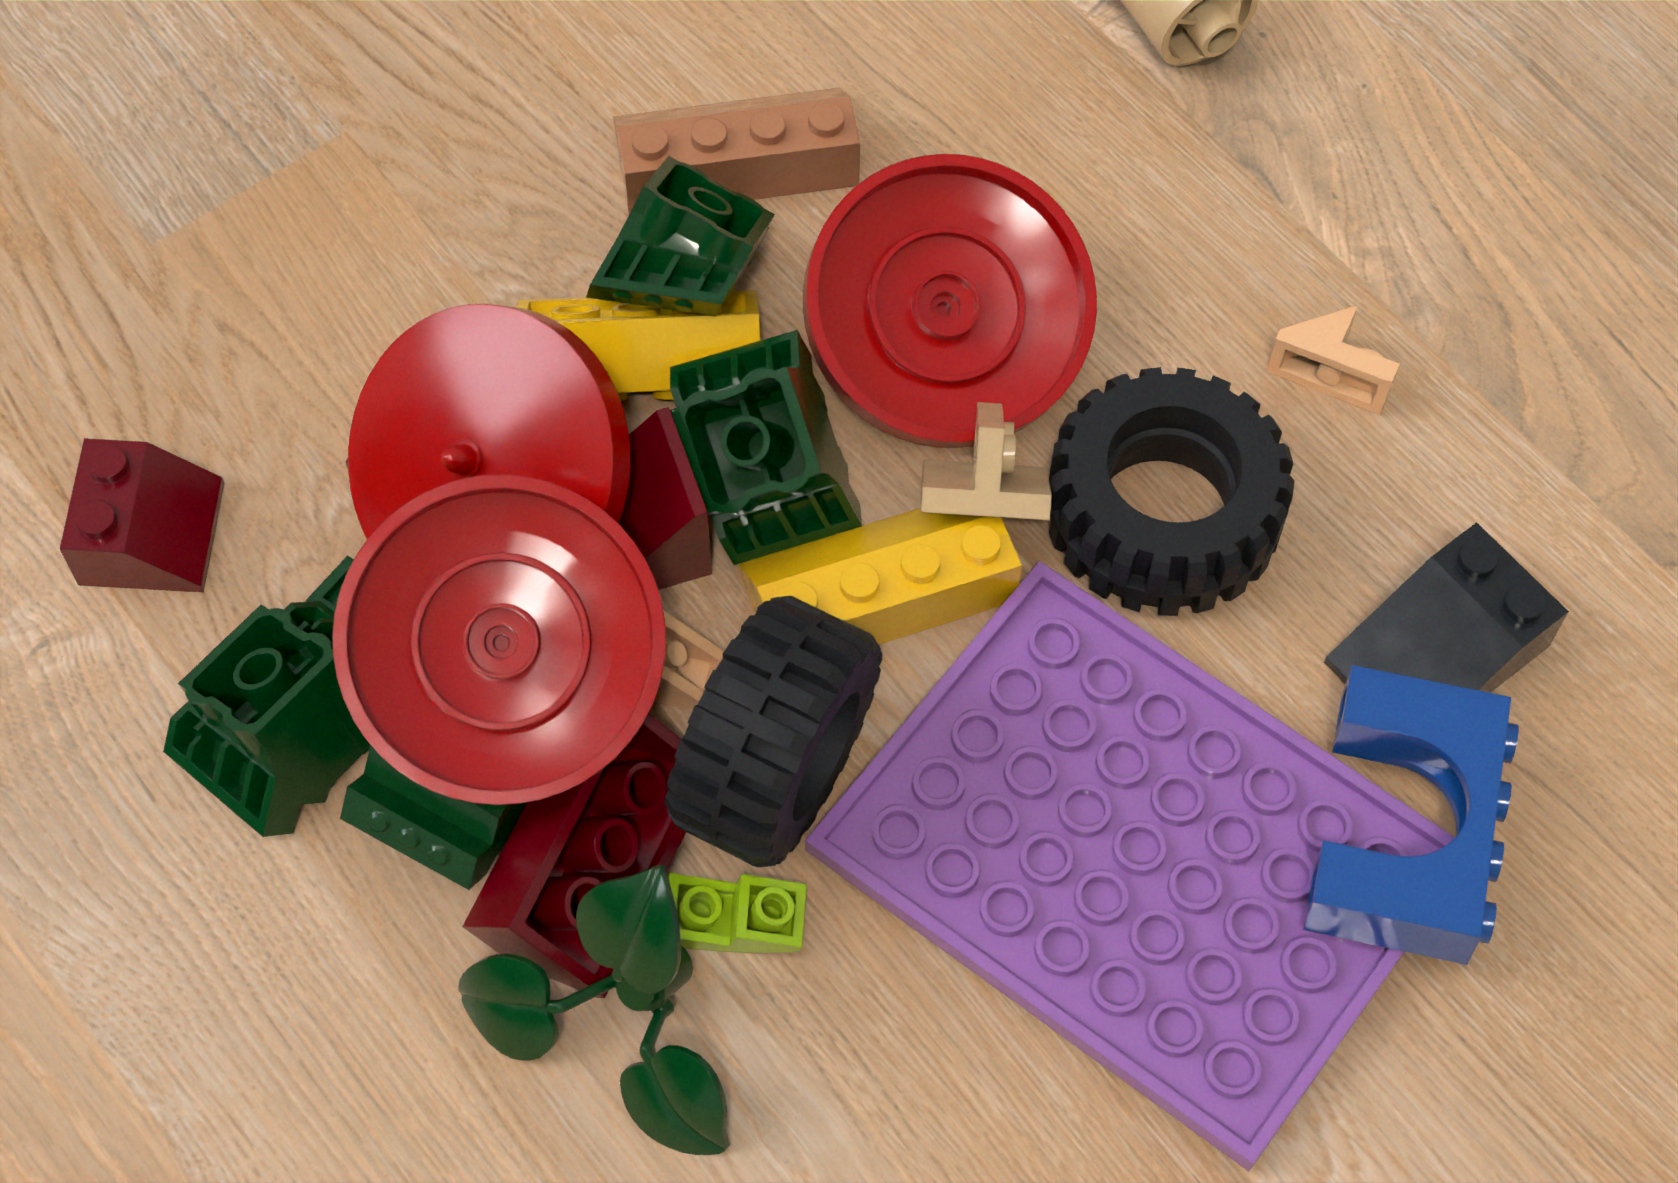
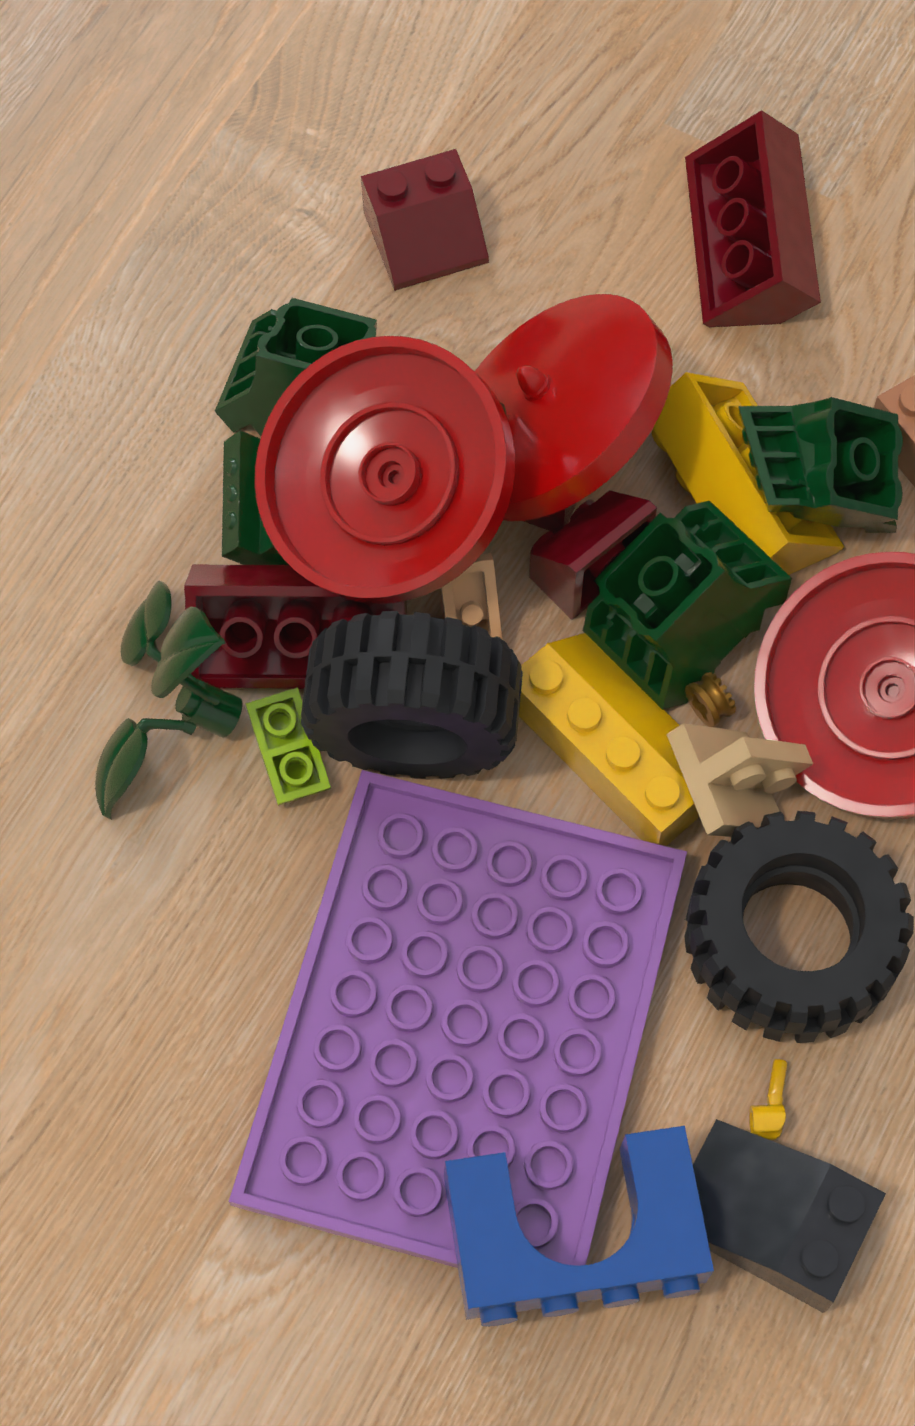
camera: 70 degrees right, 5 degrees up
(340, 211) = (752, 226): none -> dark red slope
(876, 474) = (710, 700): none -> pearl gold bush
(1344, 604) = (770, 1118): none -> yellow hand

